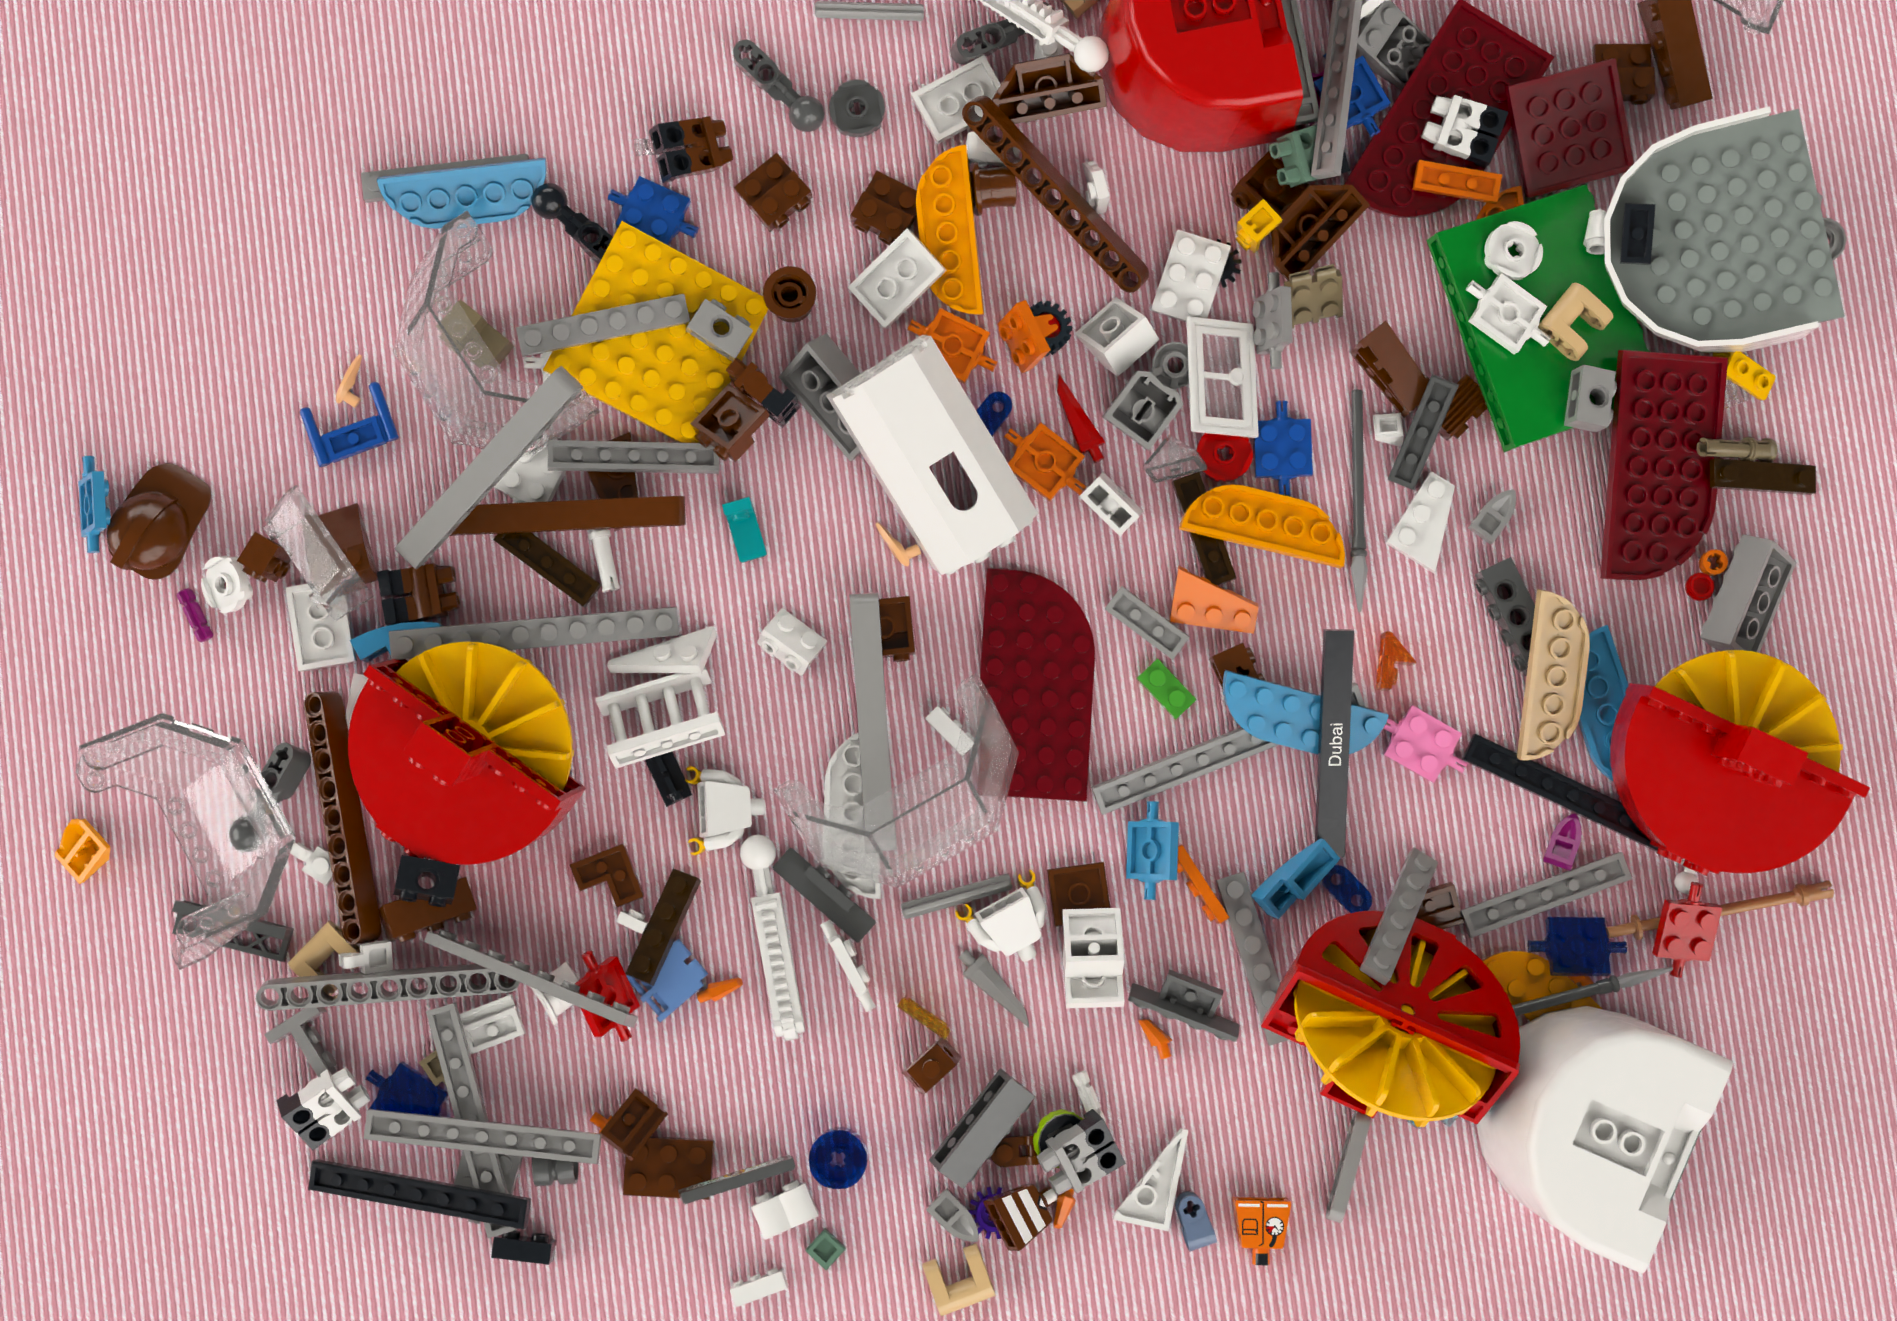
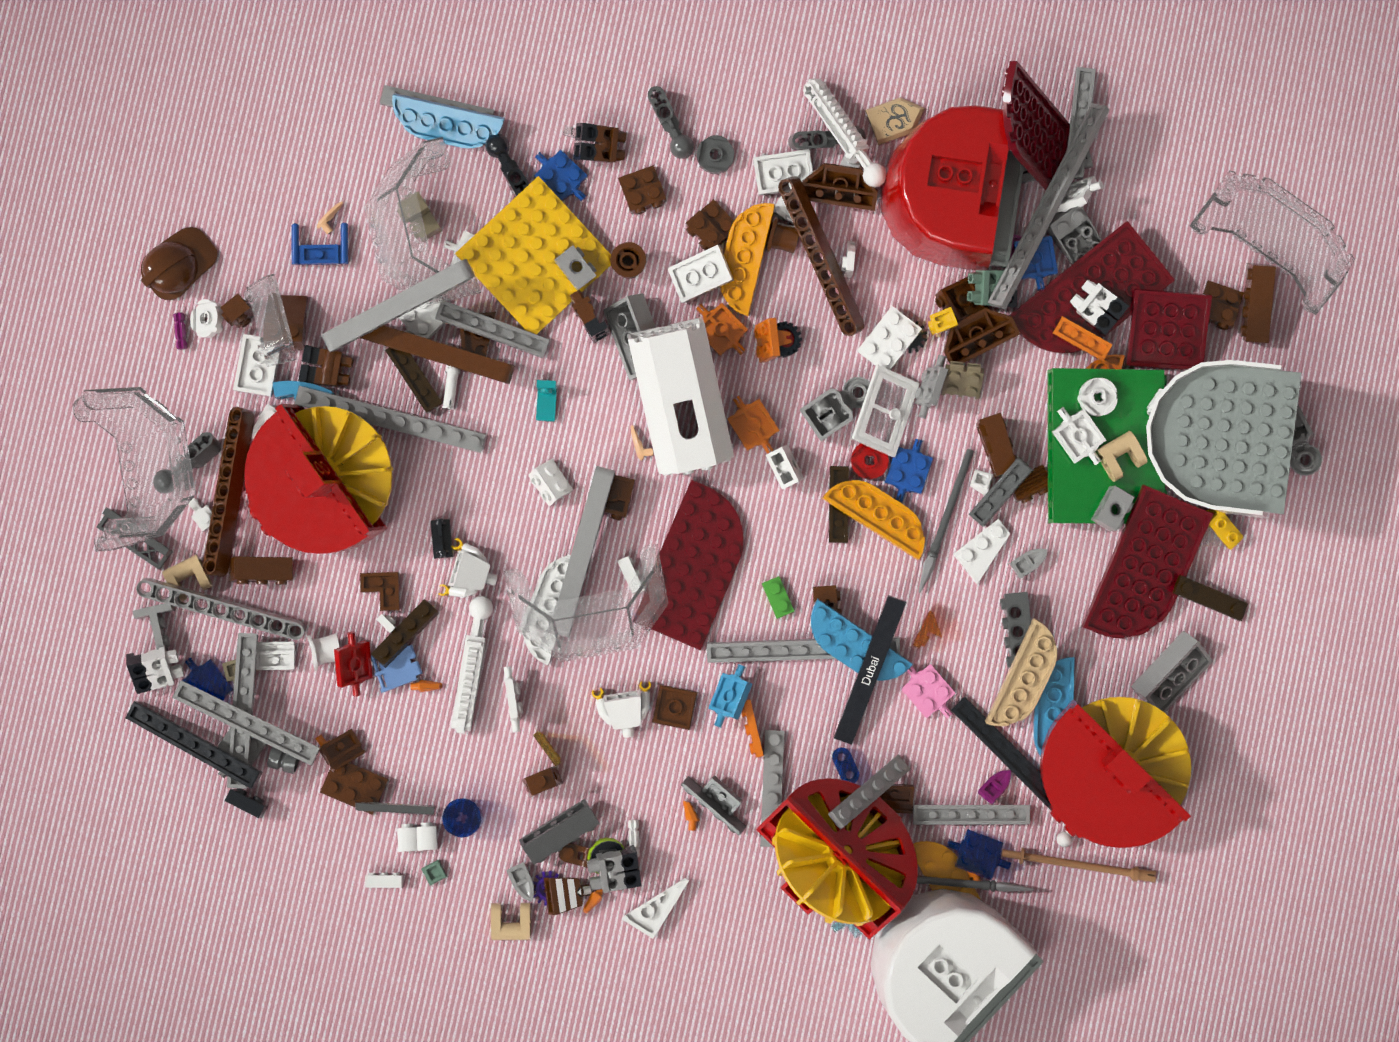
camera: 25 degrees right, 0 degrees up
(82, 850) = (58, 454): light orange slope -> none
(93, 510) = (141, 238): dark azure plate -> none
(372, 958) = (216, 587): white plate -> none
(443, 875) = (278, 549): black brick -> none
(541, 981) = (317, 639): light grey plate -> none
(603, 325) = (502, 239): light grey plate -> none
(665, 740) = (455, 515): white fence -> none
(676, 655) = (474, 465): white wing -> none
(729, 423) = (560, 329): reddish brown plate -> none
(824, 895) = (516, 655): dark grey bracket -> none
(869, 10) = (746, 93): light grey axle -> none
(956, 896) = (596, 681): light grey axle -> none
(987, 979) = (597, 740): light grey bar -> none
(992, 419) = (728, 384): clear blue plate -> none
(1085, 433) = (785, 412): red bar -> none
(1093, 958) = (668, 750): white bracket -> none
(1117, 336) = (828, 360): white slope -> none
(1147, 622) = (780, 550): light grey plate -> none
(1173, 460) = (834, 453): clear slope -> none
(1195, 1225) = (672, 941): sand blue piece -> none
(1208, 605) = (824, 554): orange wing -> none
(1261, 1225) = (713, 956): orange torso -> none
(1295, 878) = (815, 746): dark azure slope -> none
(1347, 1167) = (781, 940): light grey beam -> none
(1637, 234) = (1173, 415): black plate -> none
(1687, 929) = (1052, 868): plate -> none
(1699, 586) = (1144, 654): red plate -> none
(1721, 560) = (1153, 641): orange bush -> none
(1745, 449) = (1205, 576): dark tan pin -> none

